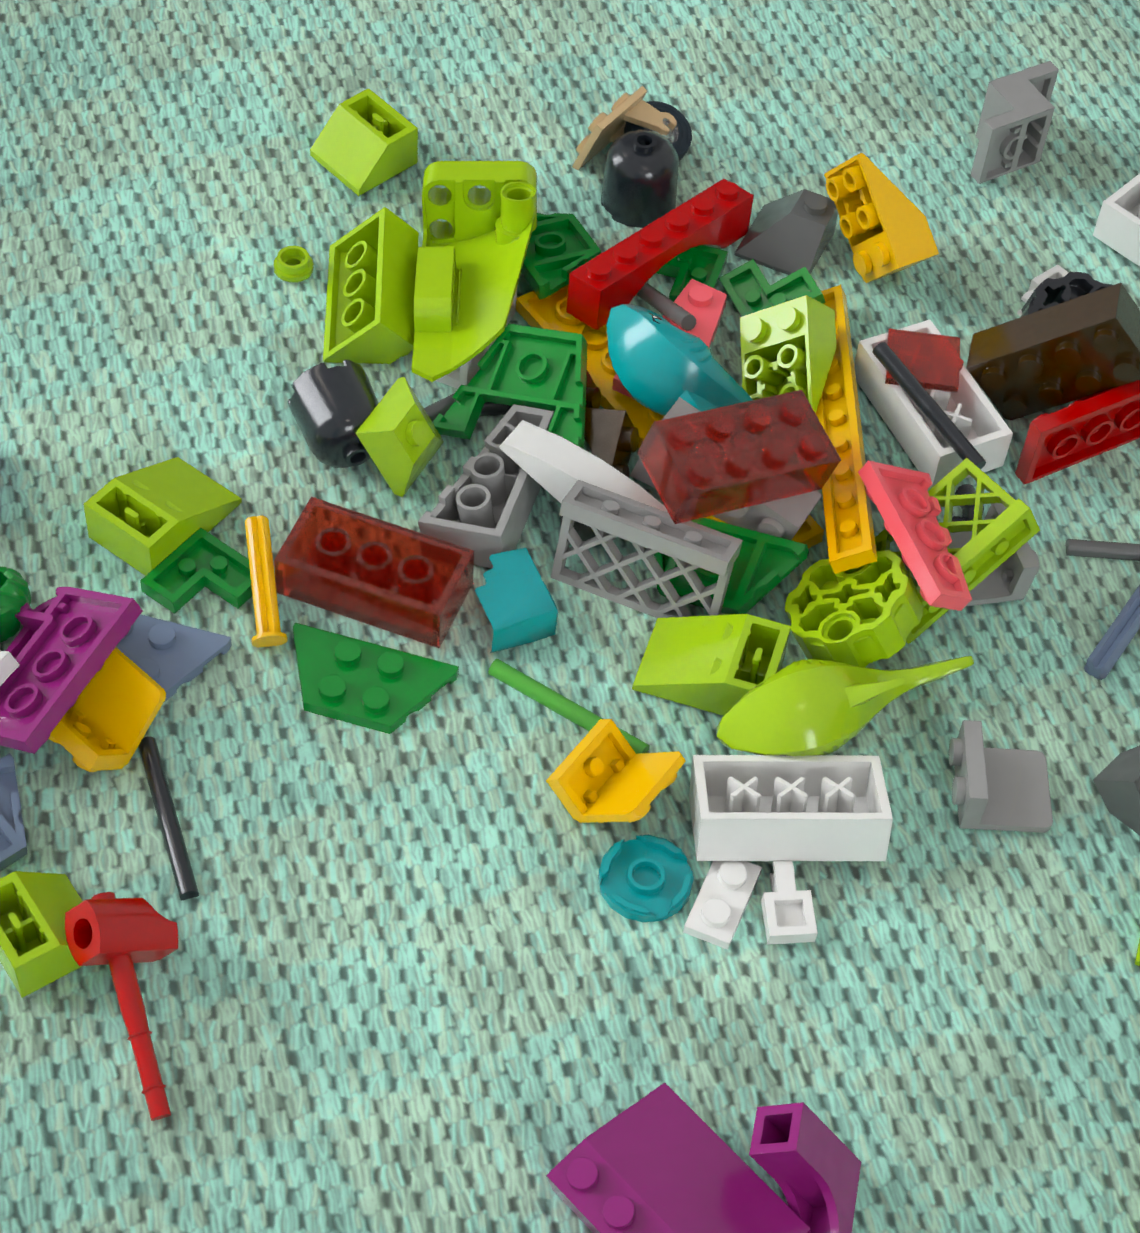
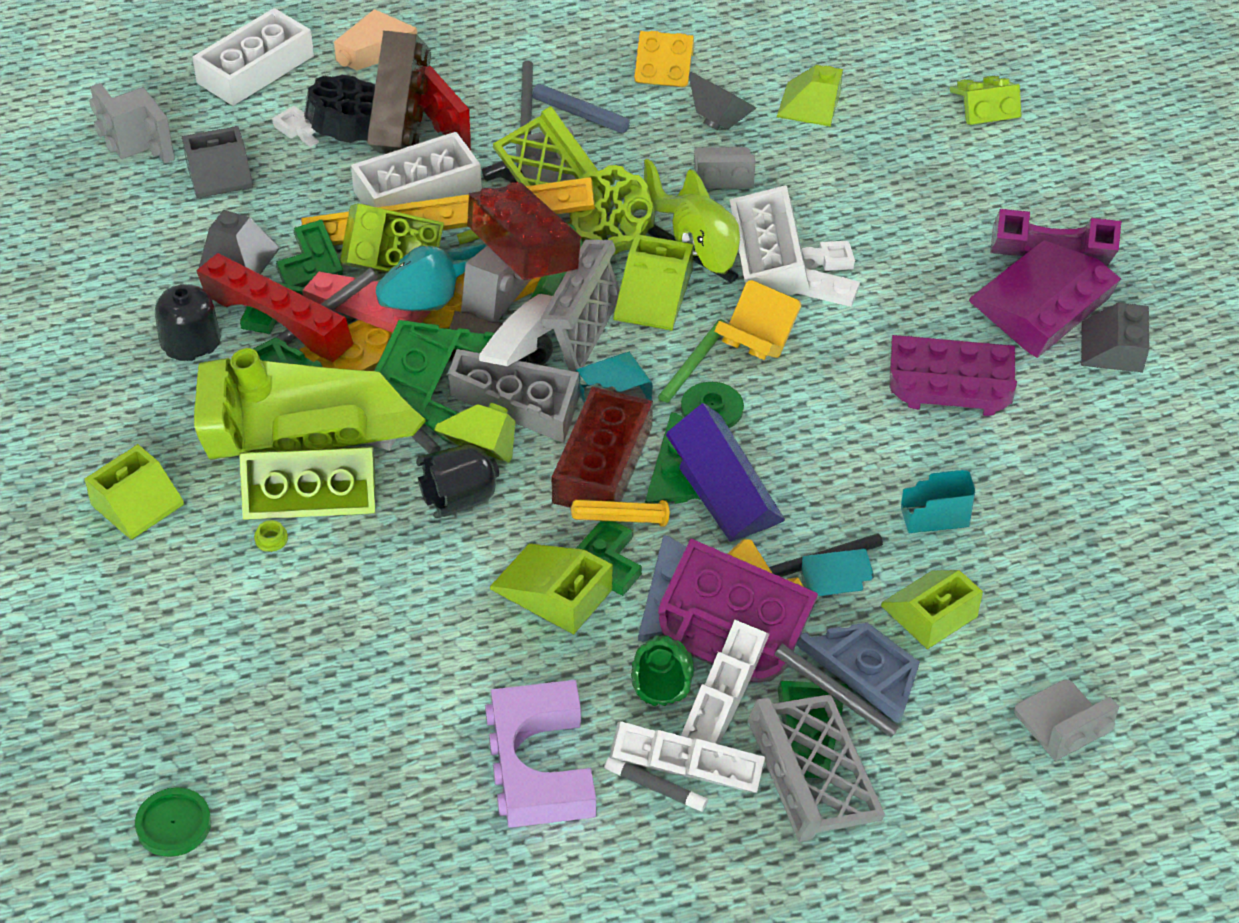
camera: 90 degrees left, 5 degrees down
(106, 814) = (836, 572): none -> teal piece
(117, 935) = (952, 551): red piece -> none
(220, 1001) = (947, 502): none -> teal piece
(311, 704) = (722, 474): none -> dark purple slope
(474, 722) = (717, 396): none -> green piece
(513, 1047) = (952, 373): none -> magenta plate
(635, 114) = (129, 334): tan plate -> none
(640, 891) = (821, 329): teal tile -> none
(878, 220) = (258, 184): yellow slope -> none
(913, 523) = (566, 162): coral wing -> none
(927, 405) = (441, 163): black bar -> none
(929, 357) = (393, 167): clear red piece -> none
(959, 205) = (217, 162): none -> dark grey slope

